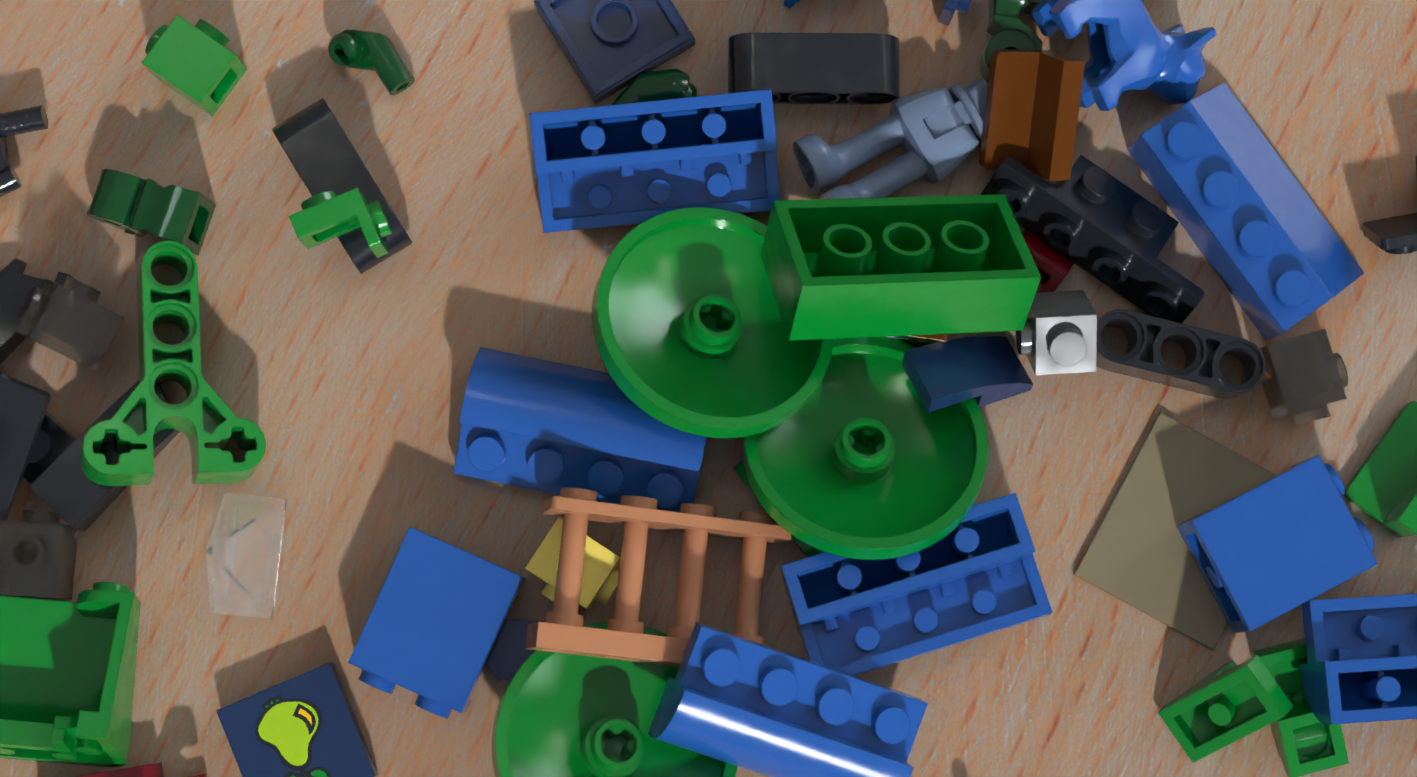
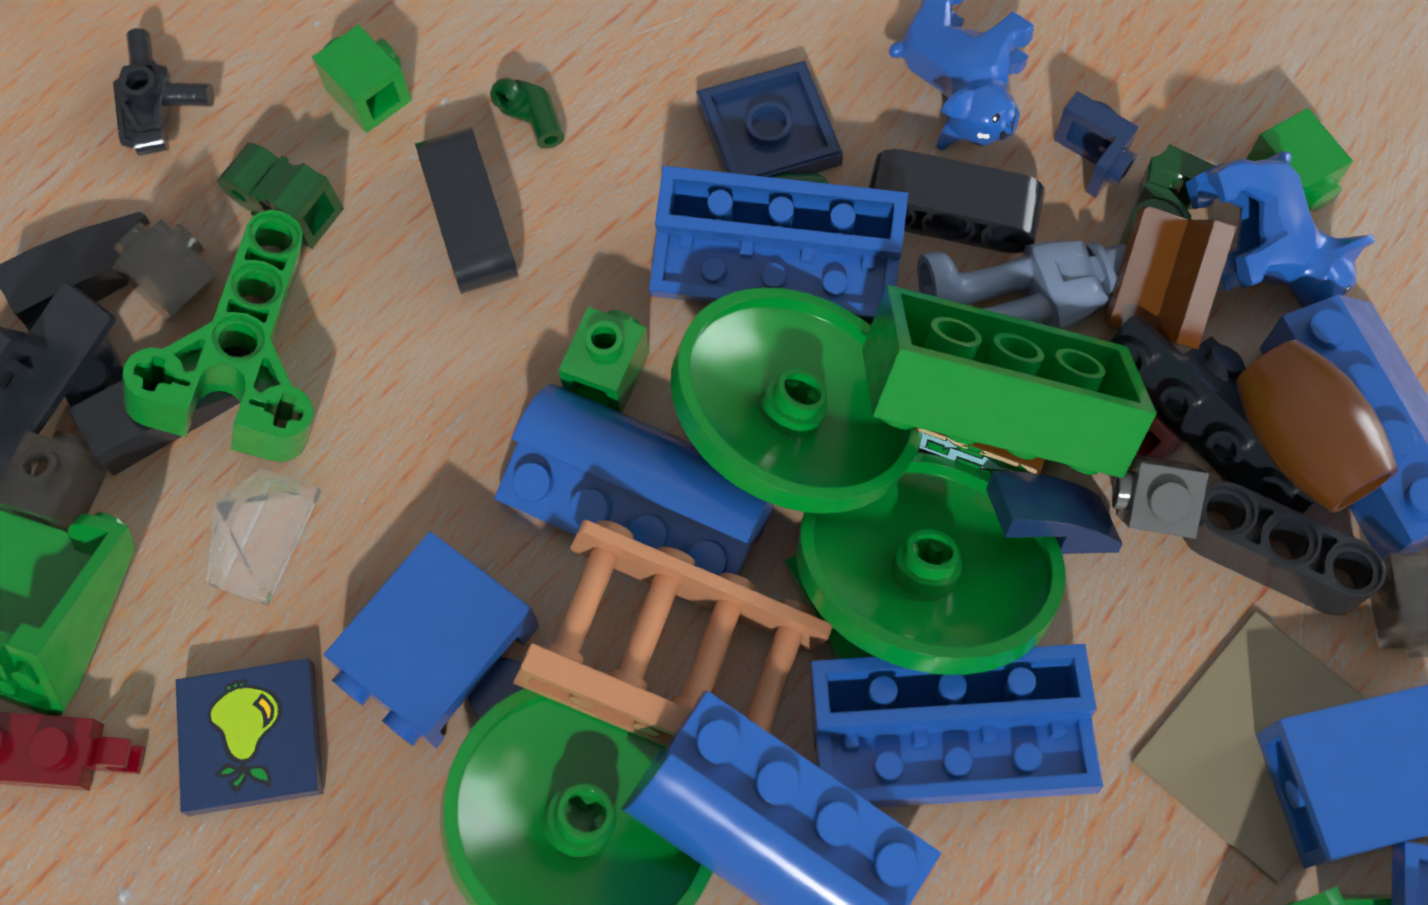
camera: 20 degrees right, 15 degrees down
(331, 216) = (447, 218): green bracket -> none
(520, 312) = (605, 357): none -> green brick
(598, 573) = (609, 627): light yellow brick -> none
(1184, 247) = (1316, 425): none -> reddish brown piece

